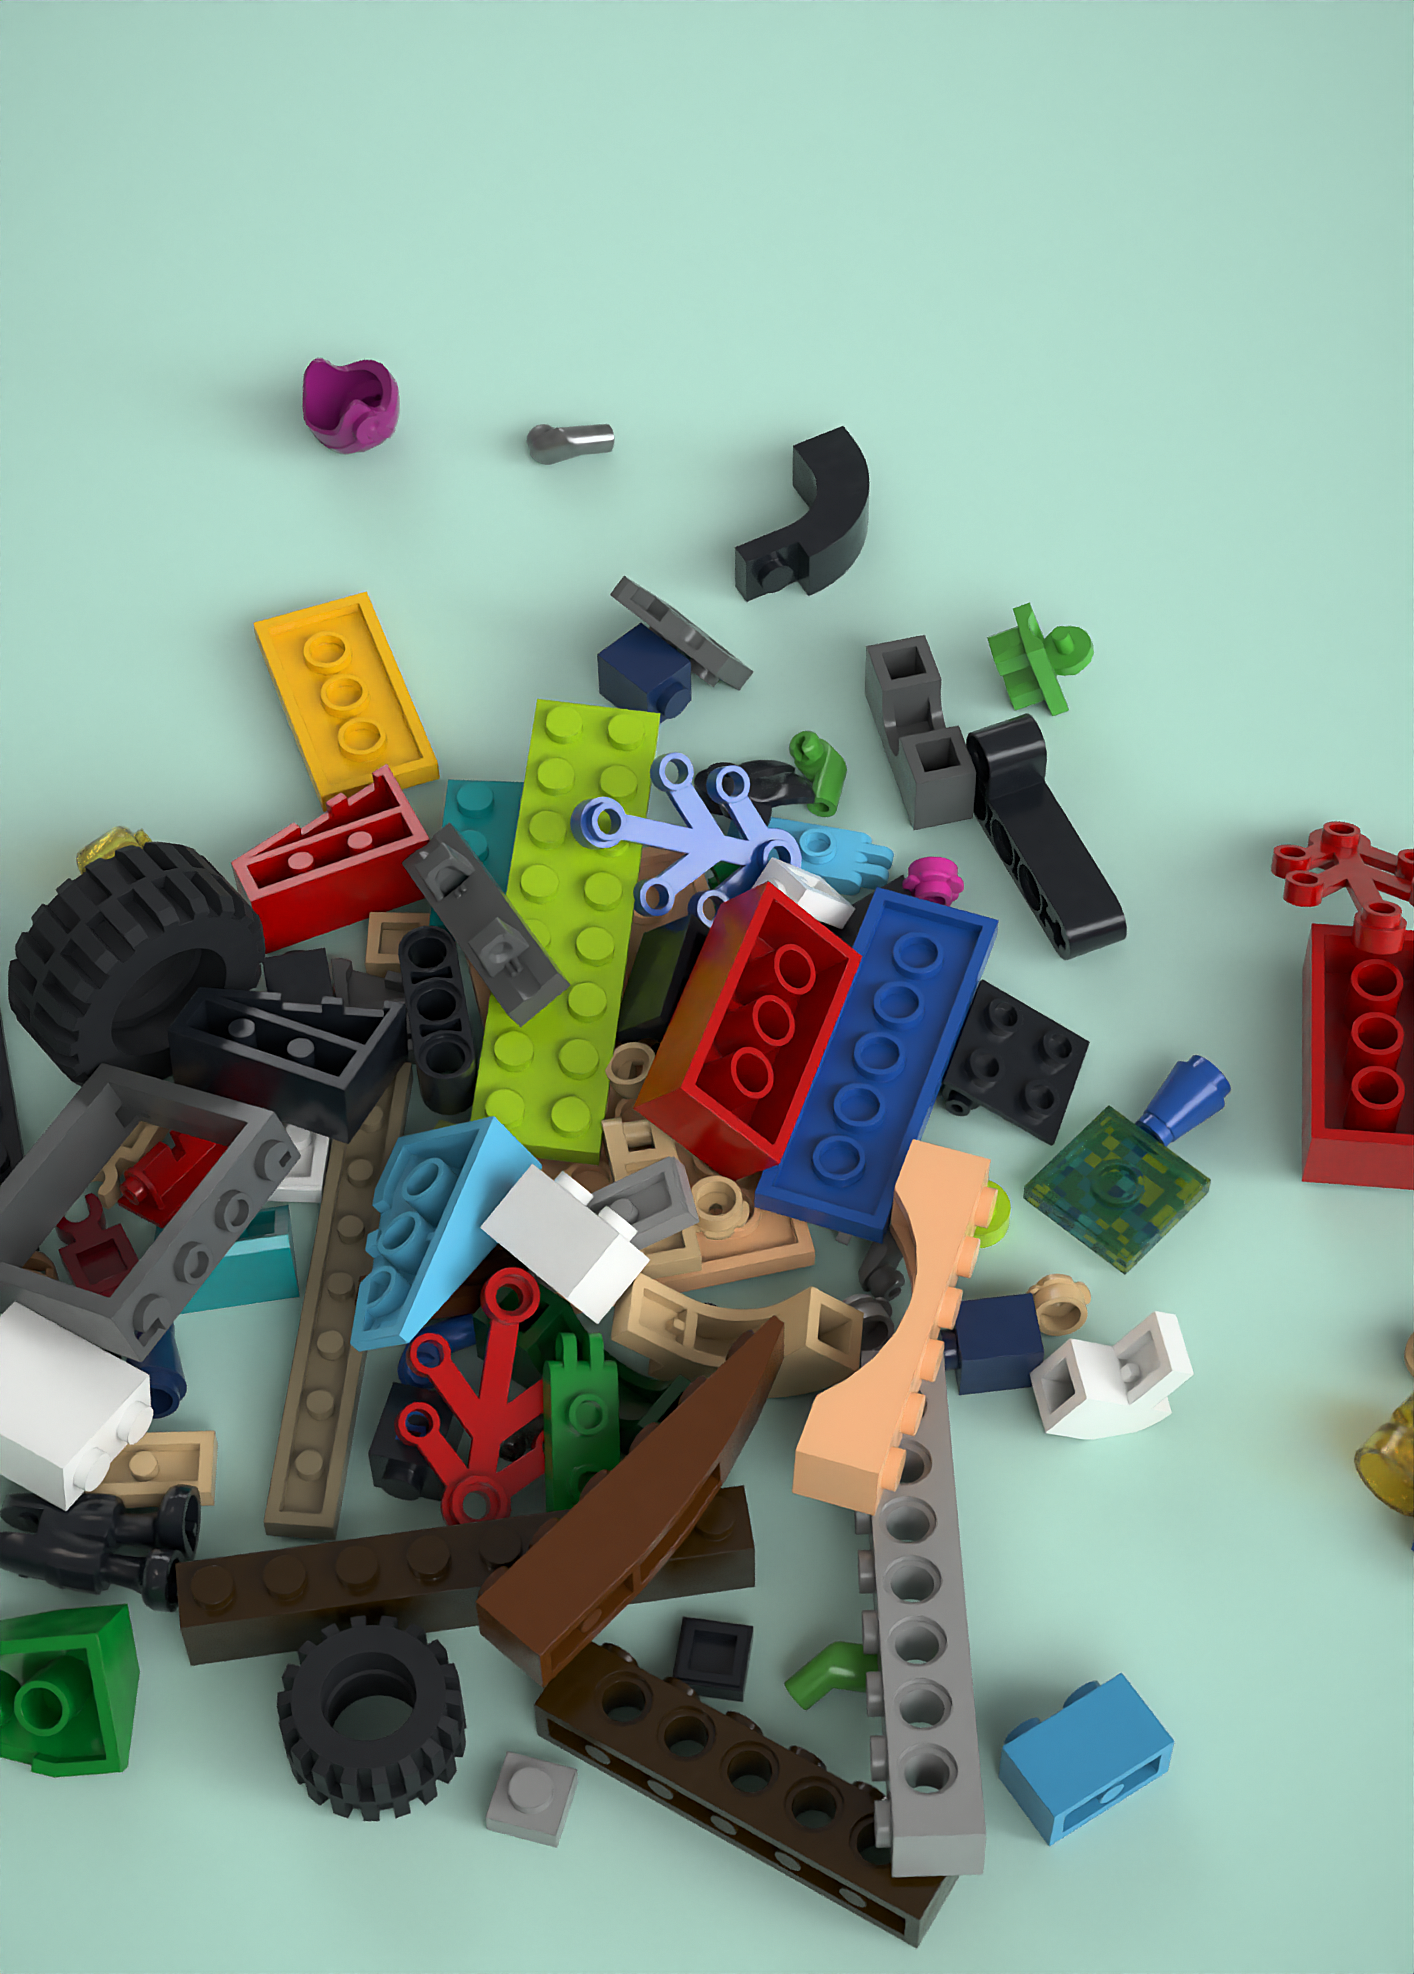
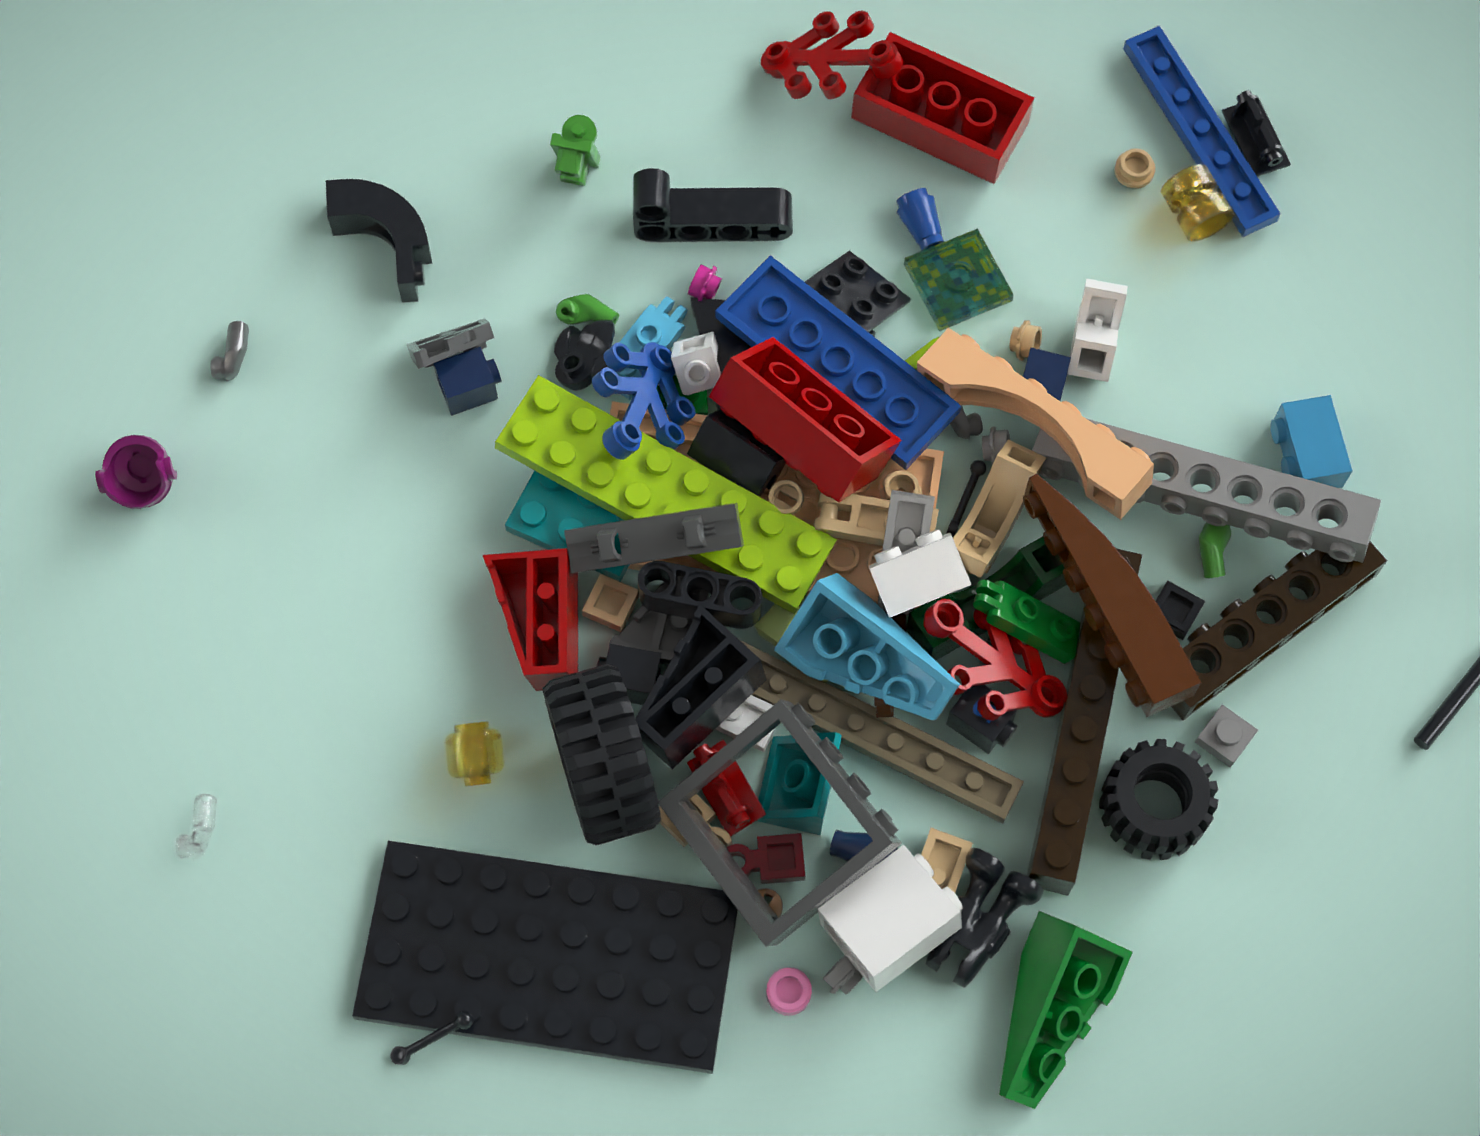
camera: 70 degrees left, 15 degrees up
(345, 697) = (391, 568): yellow plate -> none
(925, 756) = (567, 241): dark grey arch -> none

